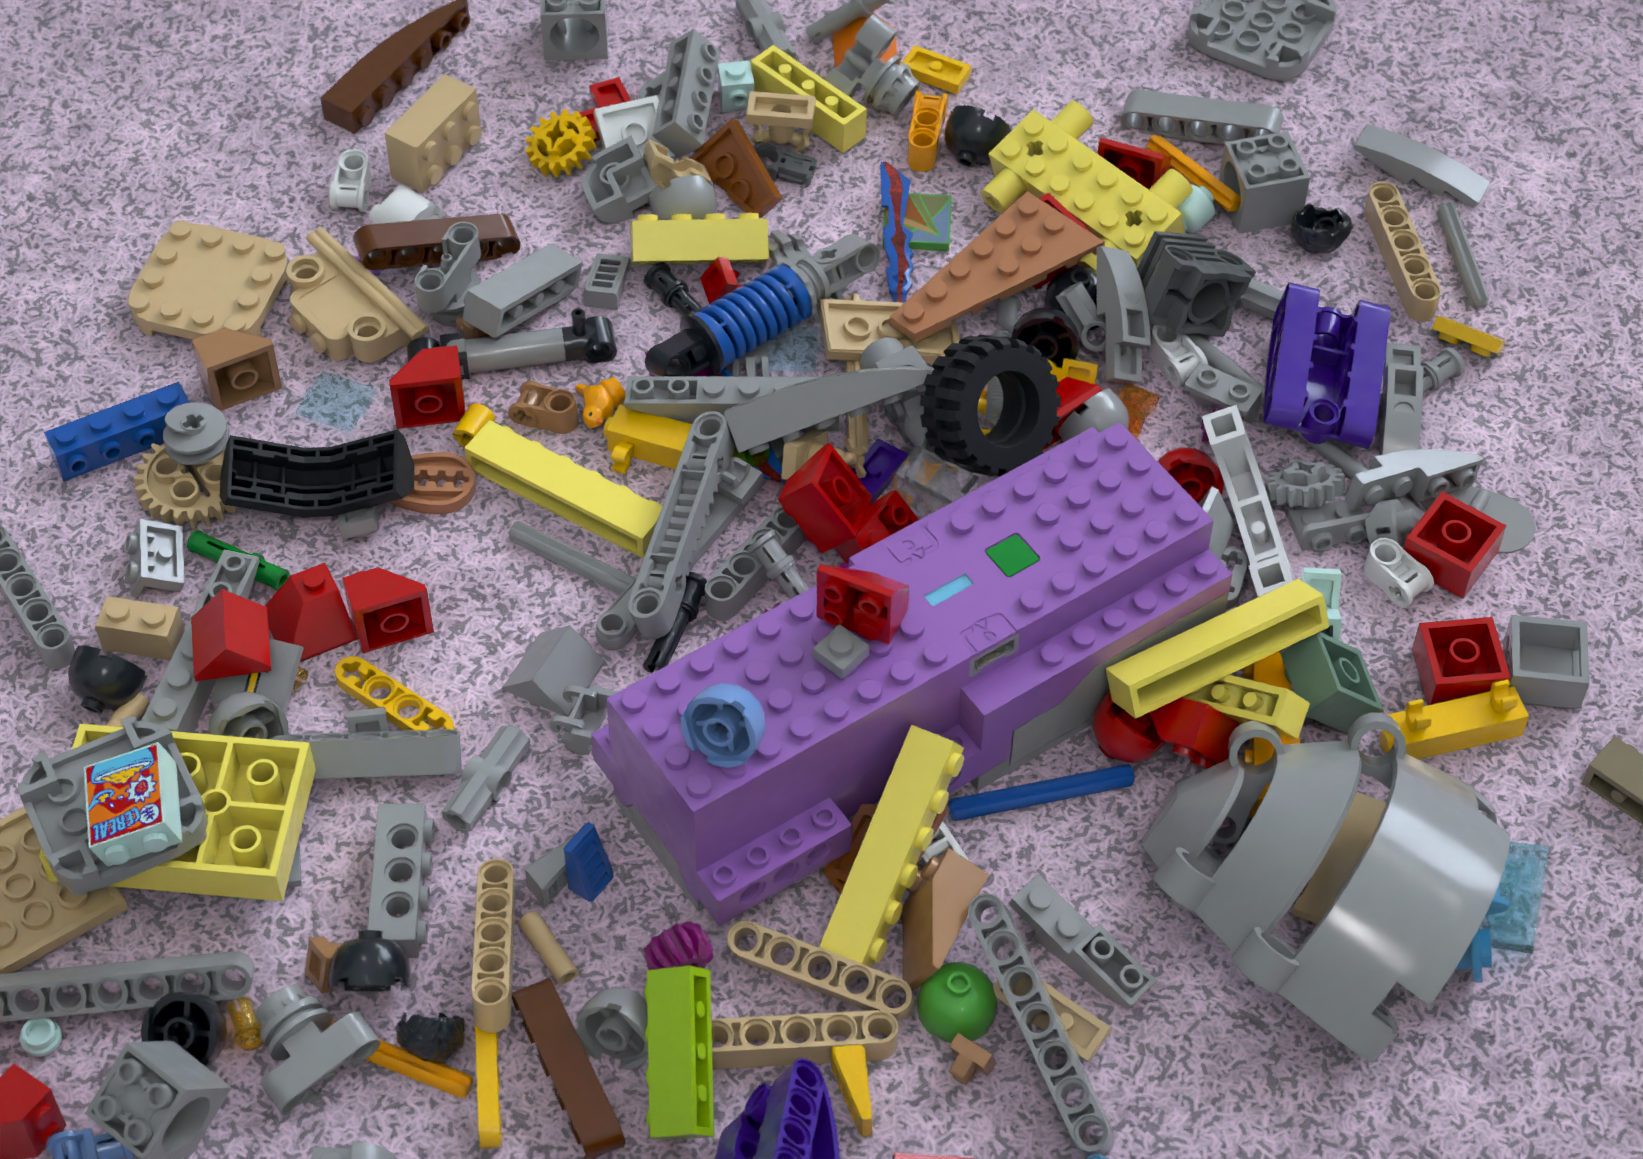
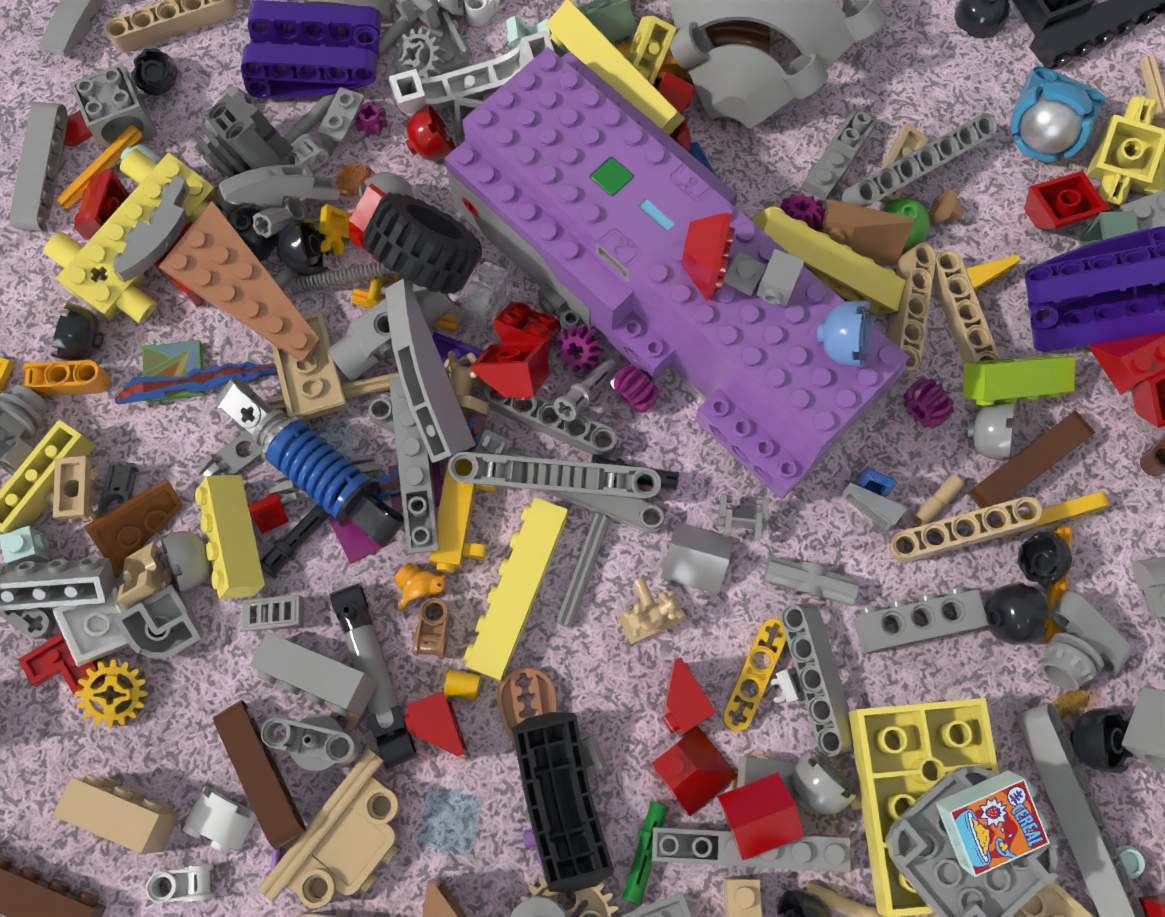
camera: 100 degrees left, 20 degrees up
(318, 962) = (1008, 654): medium nougat tile -> none
(493, 605) = (652, 616): none -> tan piece
(821, 676) = (780, 277): none -> light grey brick
(1001, 866) = (804, 209): none -> magenta gear
(1063, 189) = (150, 242): none -> light grey slope

